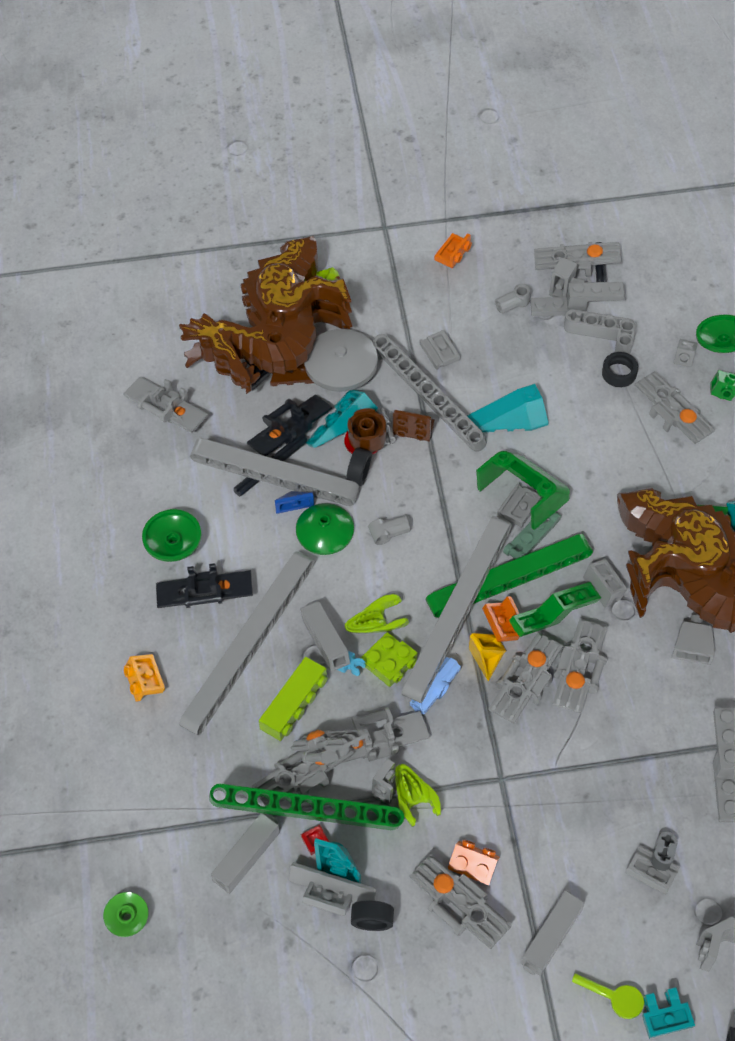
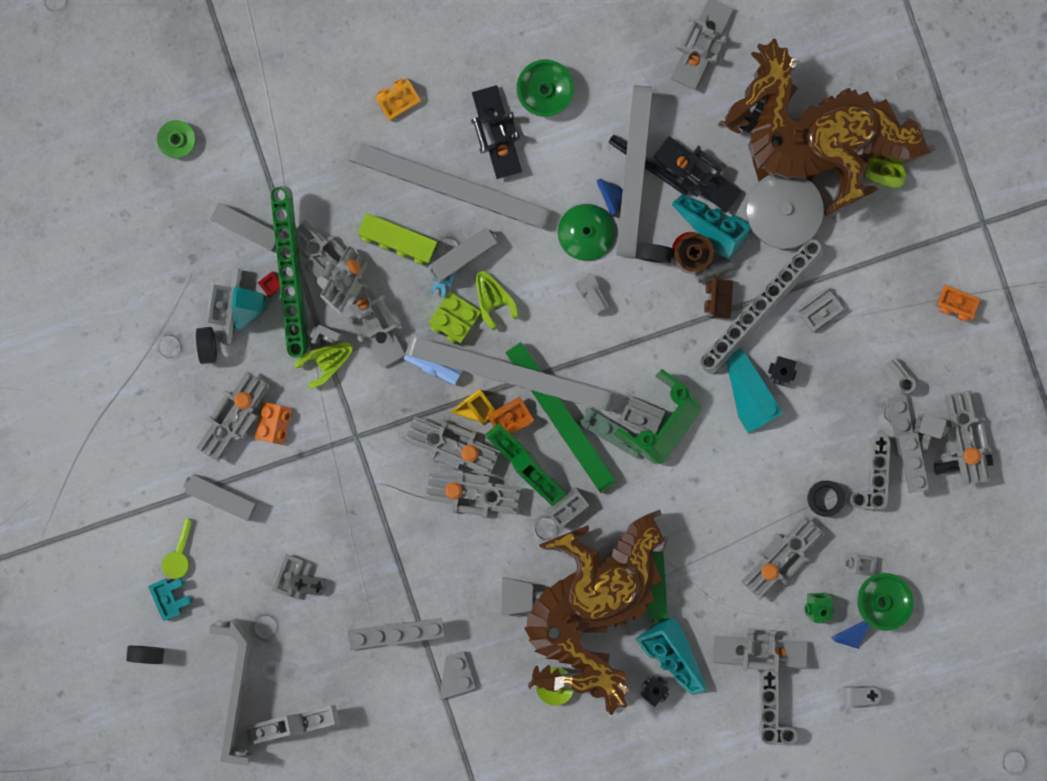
camera: 80 degrees right, 30 degrees up
(492, 382) = (785, 364): none -> black brick

